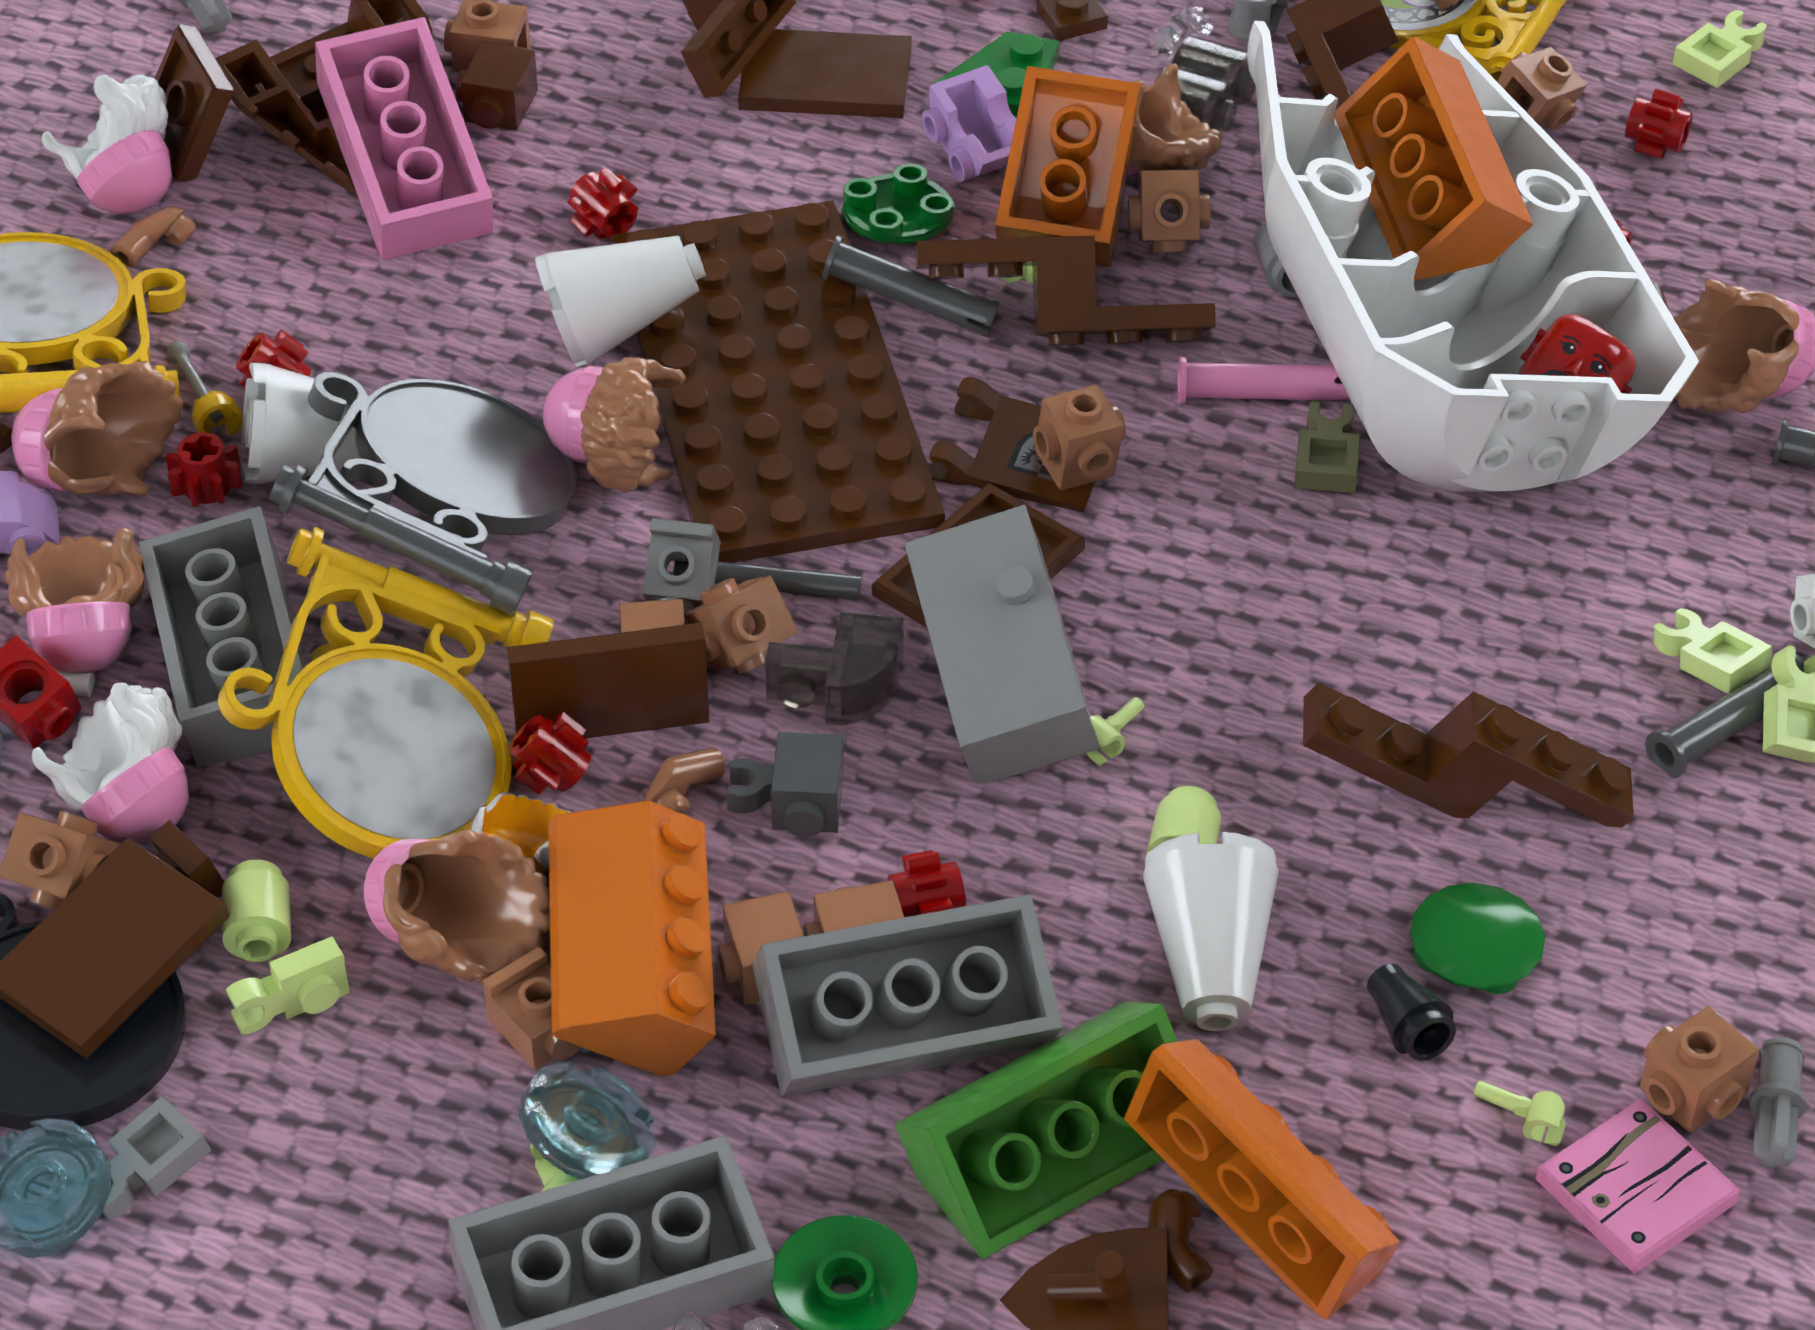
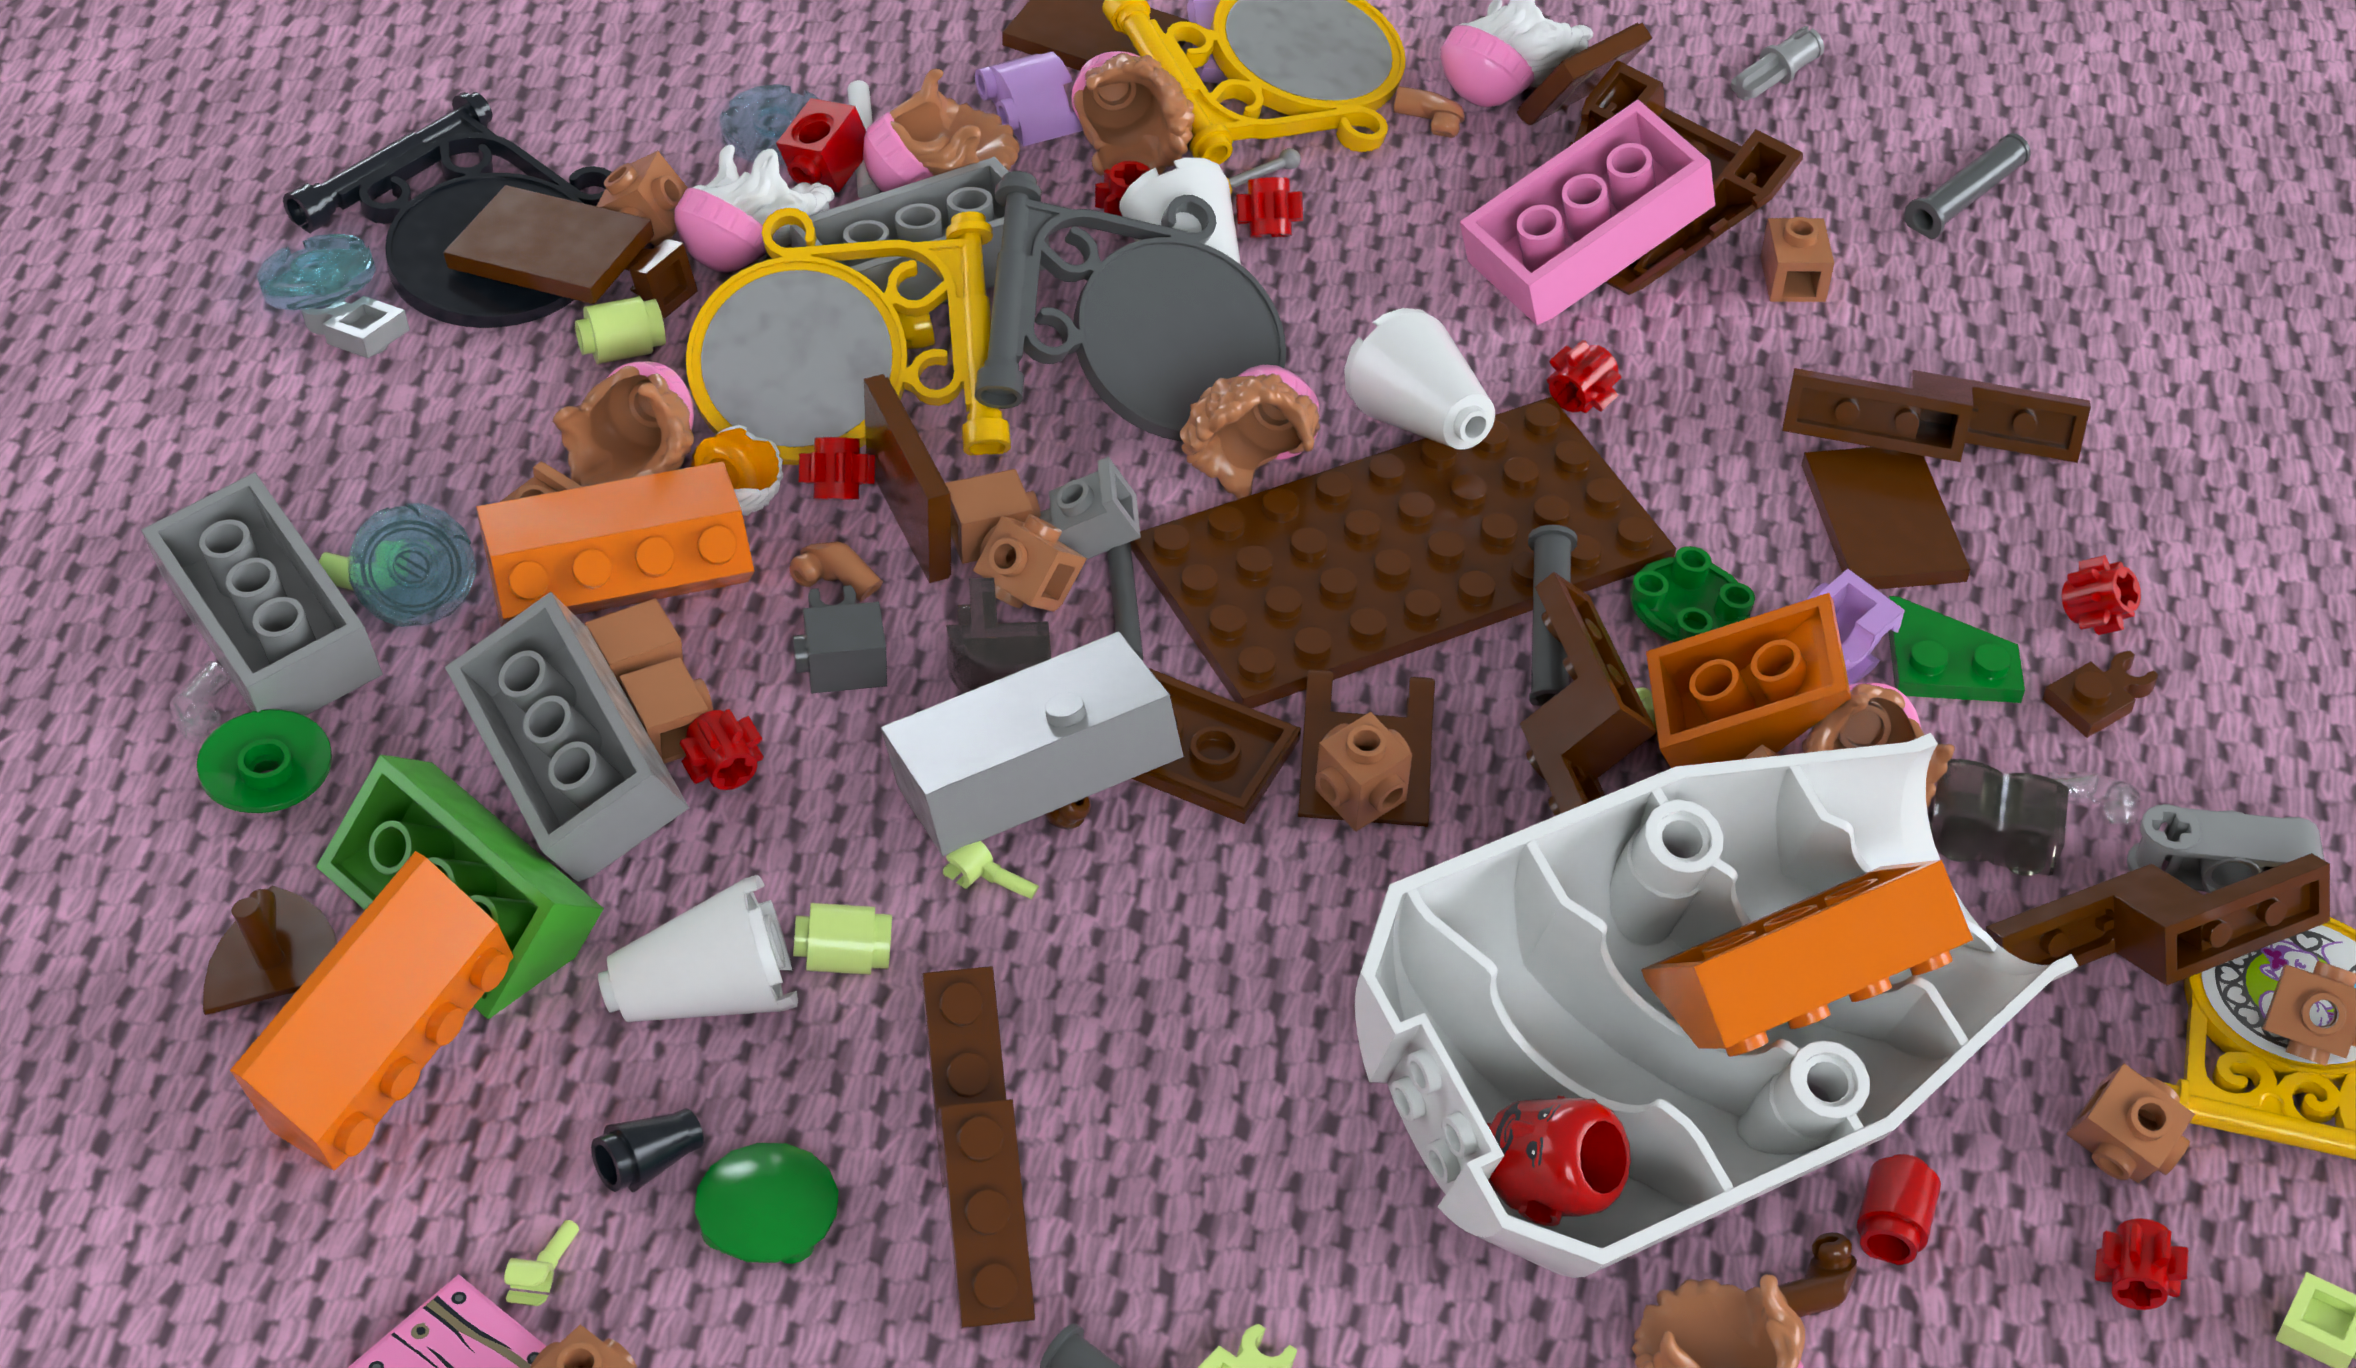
camera: 75 degrees right, 0 degrees up
(298, 983) = (543, 366): yellowish green plate -> none
(498, 86) = (1727, 278): reddish brown brick -> none

